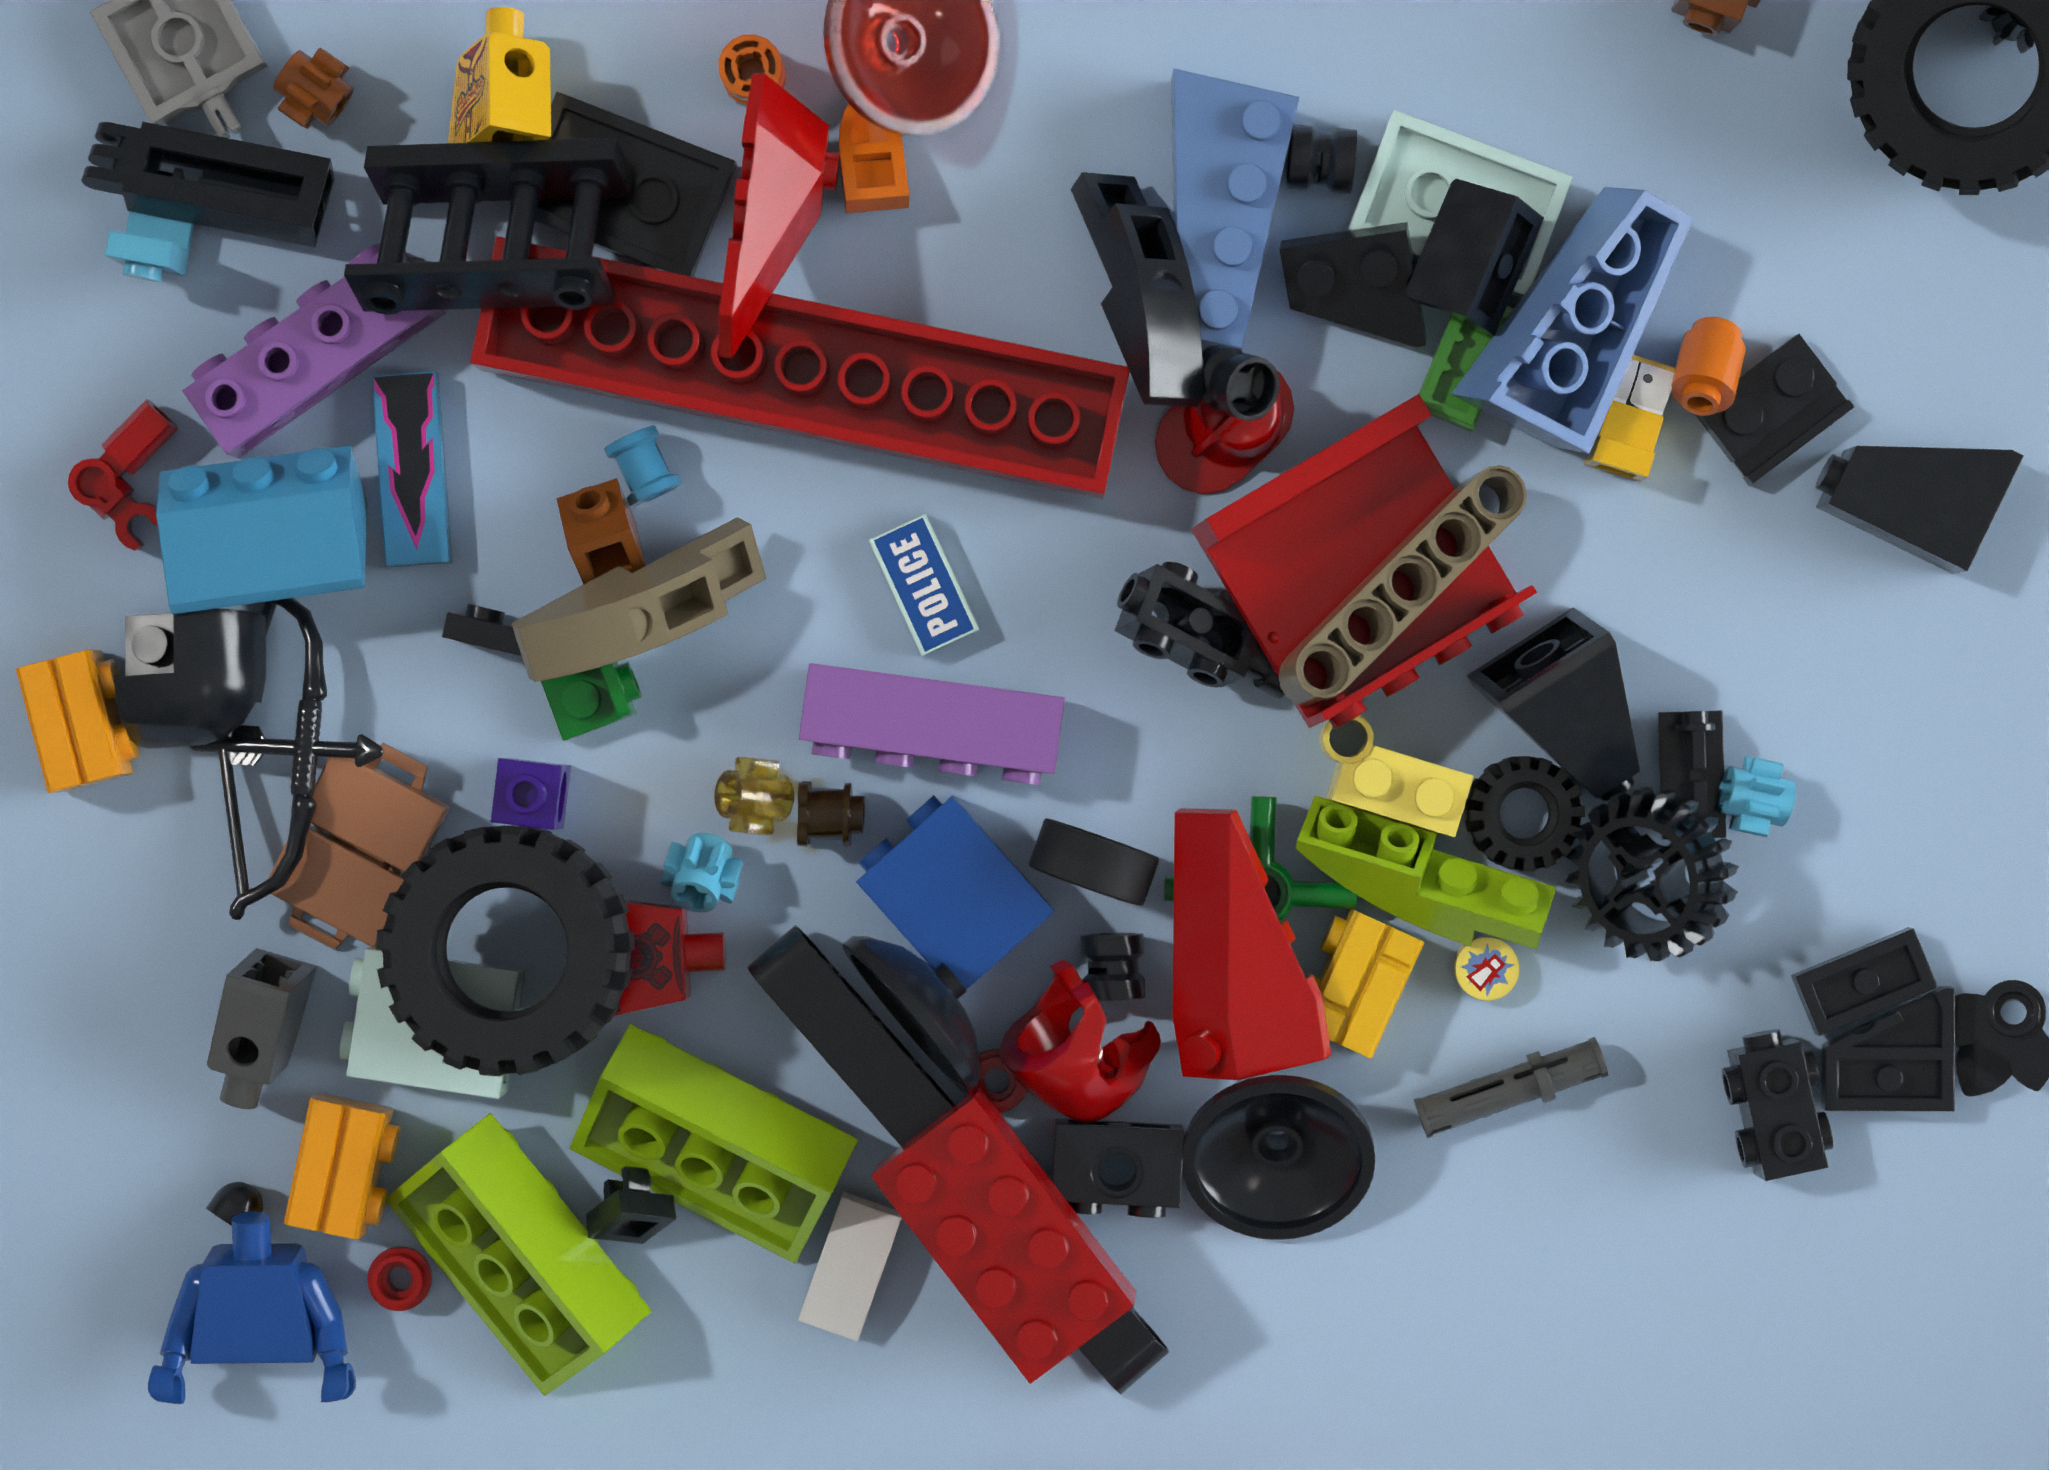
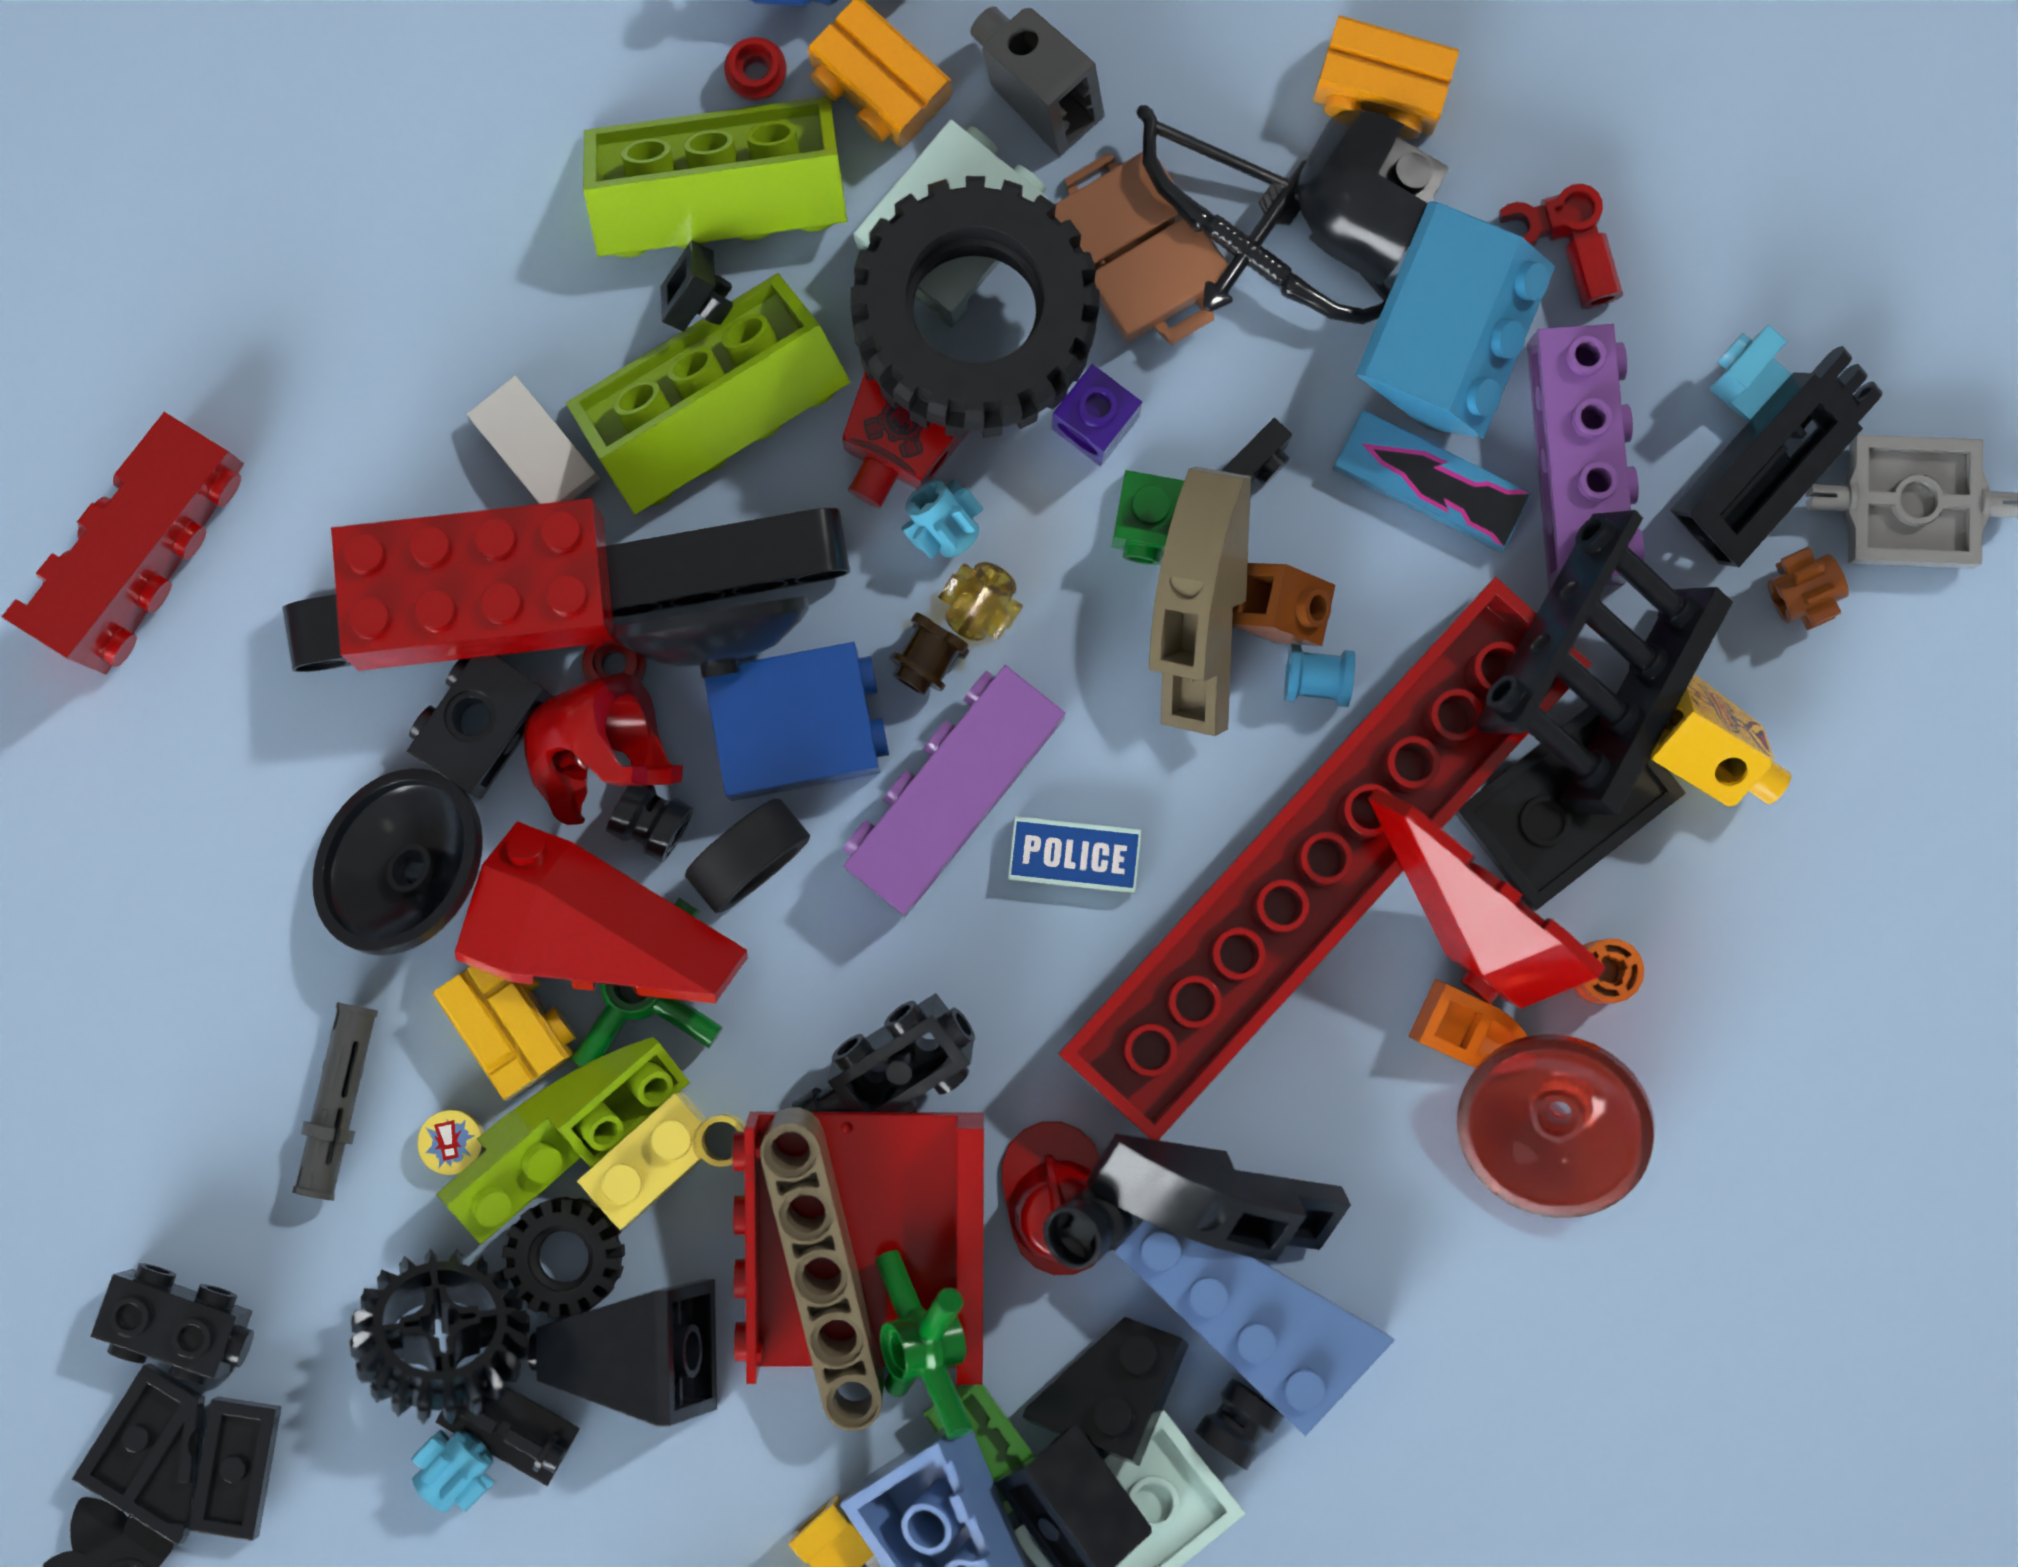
camera: 120 degrees right, 5 degrees down
(1415, 462) = (923, 1344): none -> green bar

